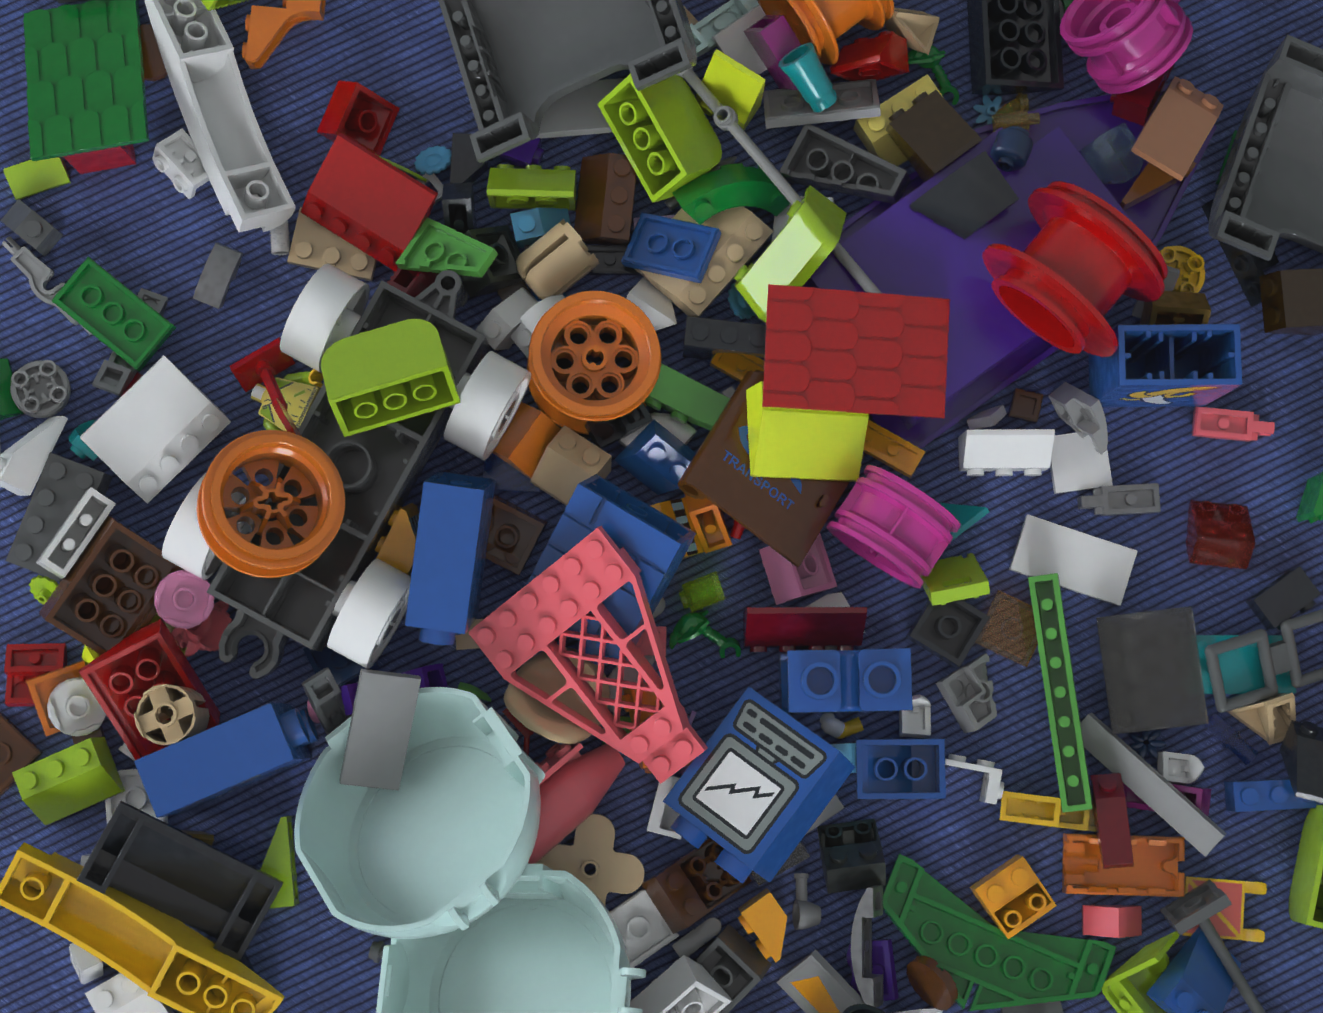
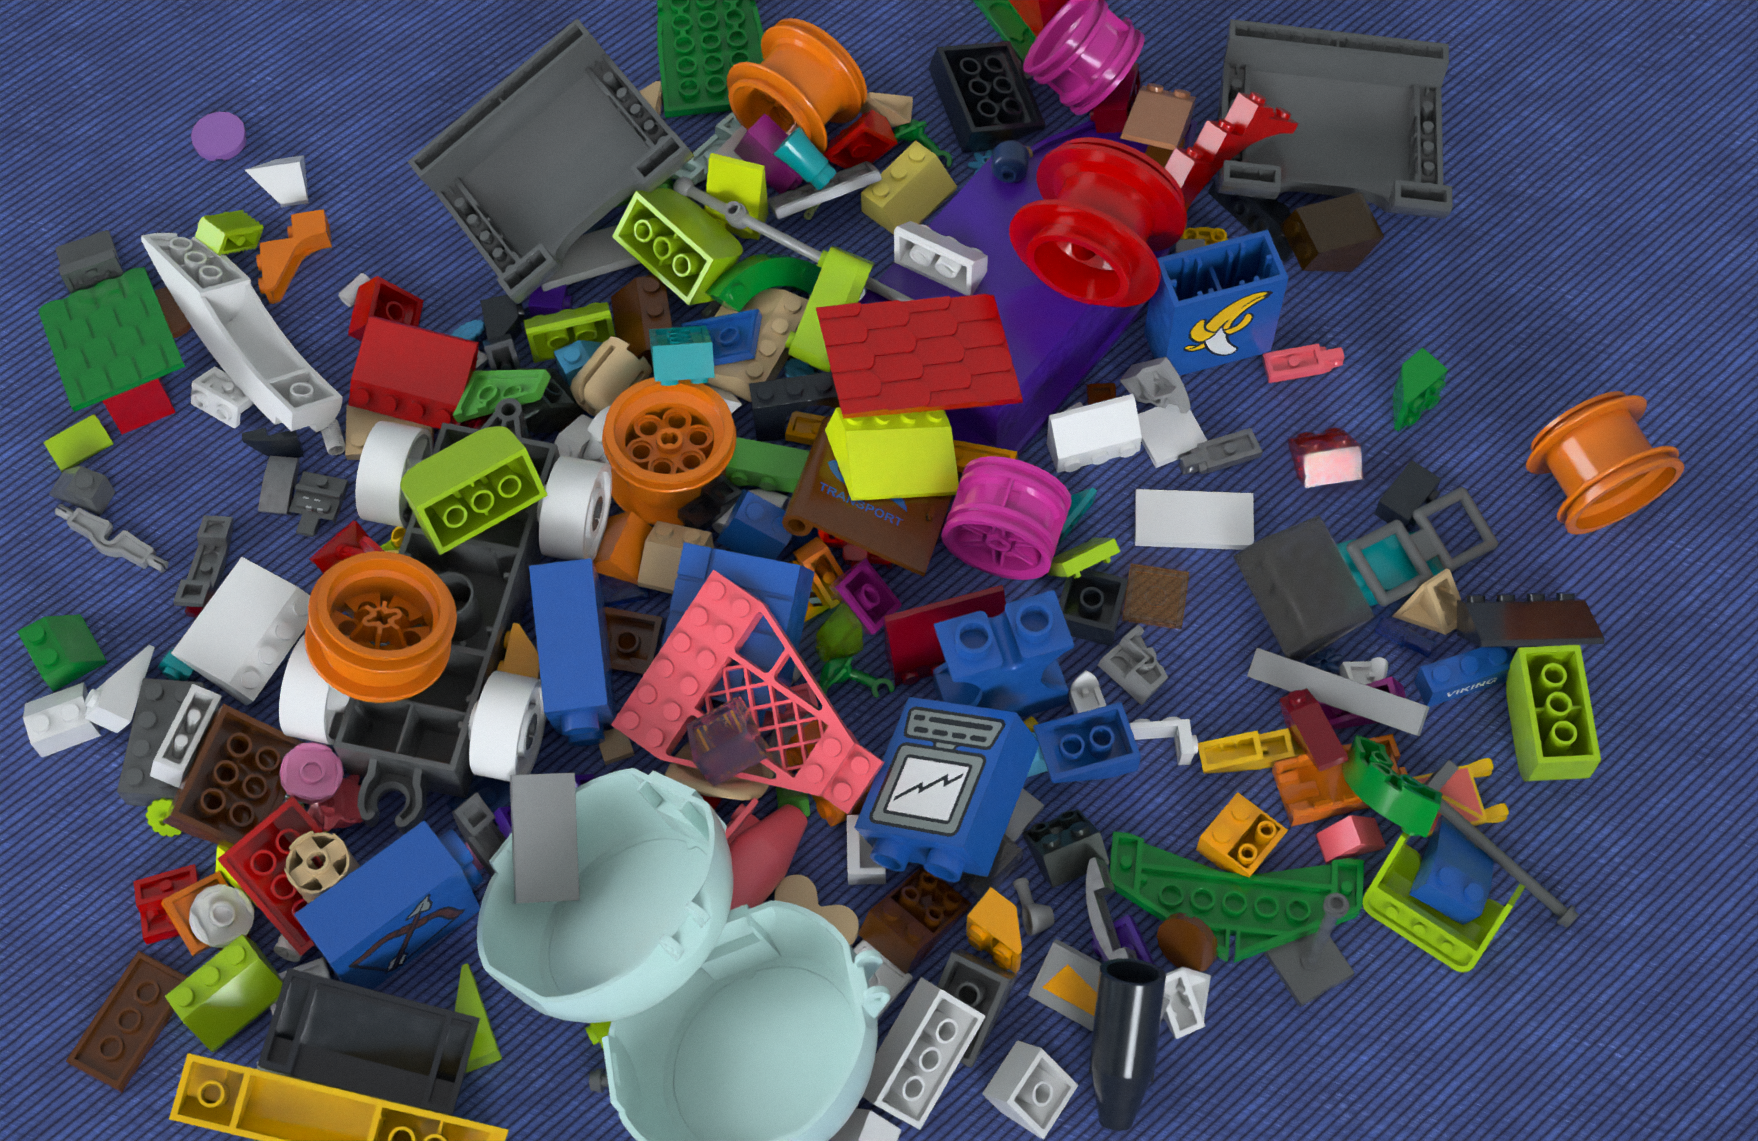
camera: 10 degrees left, 20 degrees down
(40, 389) = (120, 631): light grey tile -> none
(113, 314) = (181, 541): green tile -> none
(223, 234) = (279, 444): none -> black slope
(251, 301) = (317, 498): none -> dark grey piece
(329, 84) = (347, 295): none -> white piece
(566, 690) = (725, 741): none -> clear purple slope
(629, 267) = (681, 354): none -> teal slope
(697, 937) = (933, 968): light grey bar -> none
(737, 564) = (865, 595): none -> magenta slope
(794, 582) = (918, 591): bright pink slope -> none
(842, 167) = (856, 230): dark grey wedge -> none
(910, 239) = (939, 257): none -> white slope
(931, 134) = (932, 178): dark brown slope -> none
(967, 197) = (983, 209): black slope -> none
(1060, 693) = (1222, 632): bright green brick -> none
(1158, 912) = (1391, 795): none -> green brick
(1192, 198) = (1244, 125): none -> red arch

